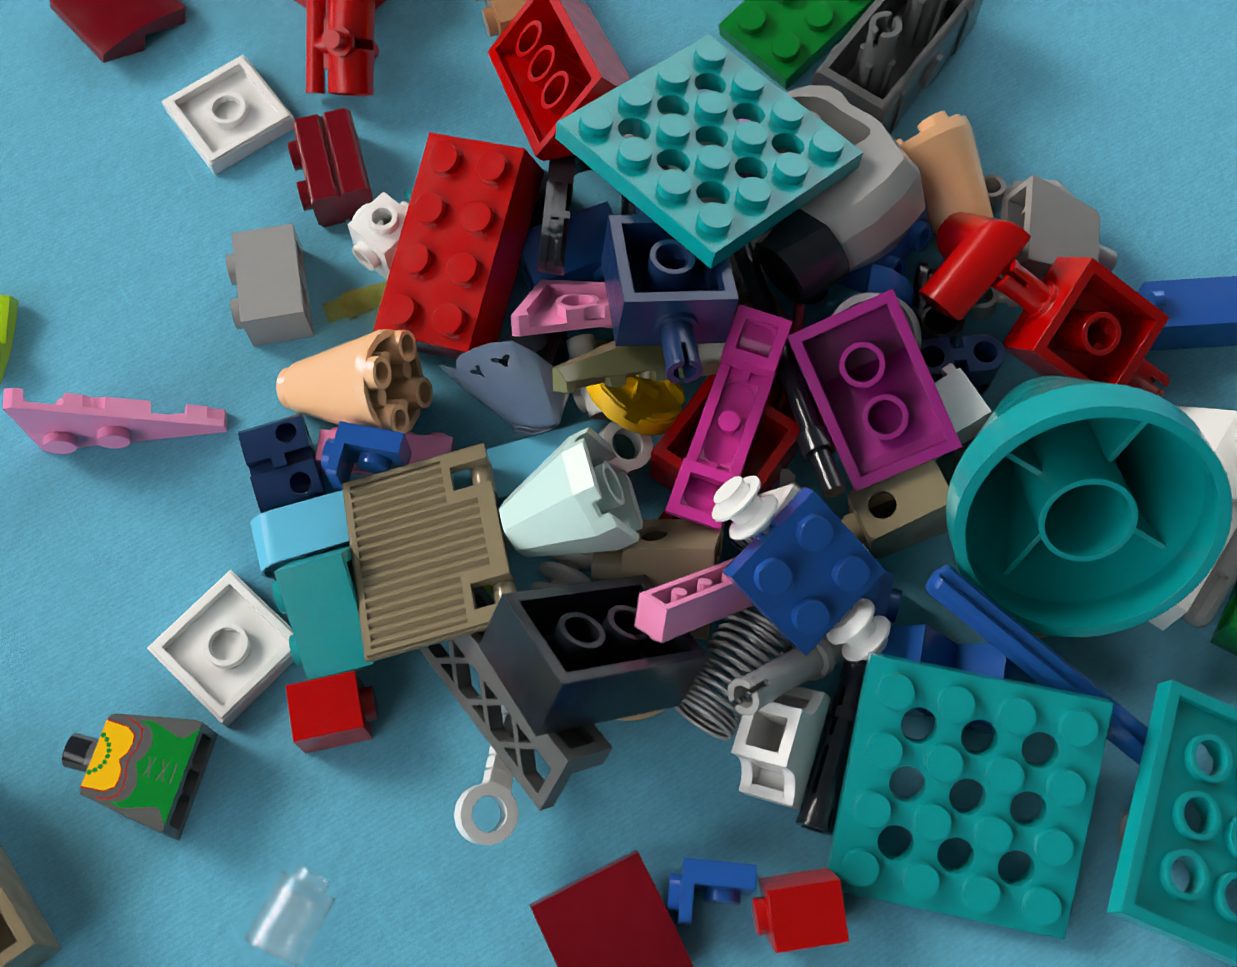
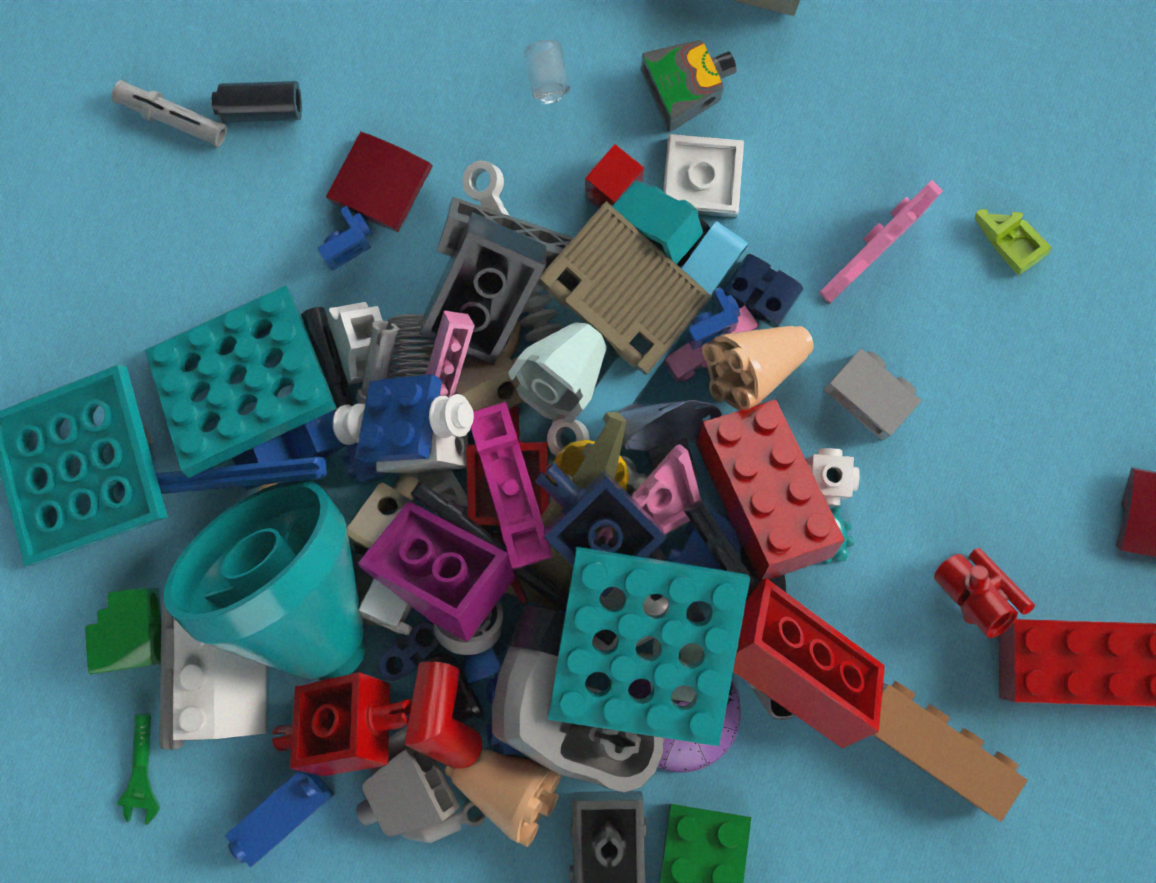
camera: 145 degrees right, 15 degrees up
(229, 114) = (1016, 496): white tile -> none
(332, 166) = (910, 502): dark red brick -> none
(355, 302) = (813, 427): clear yellow animal -> none
(800, 910) = (290, 260): red brick -> none

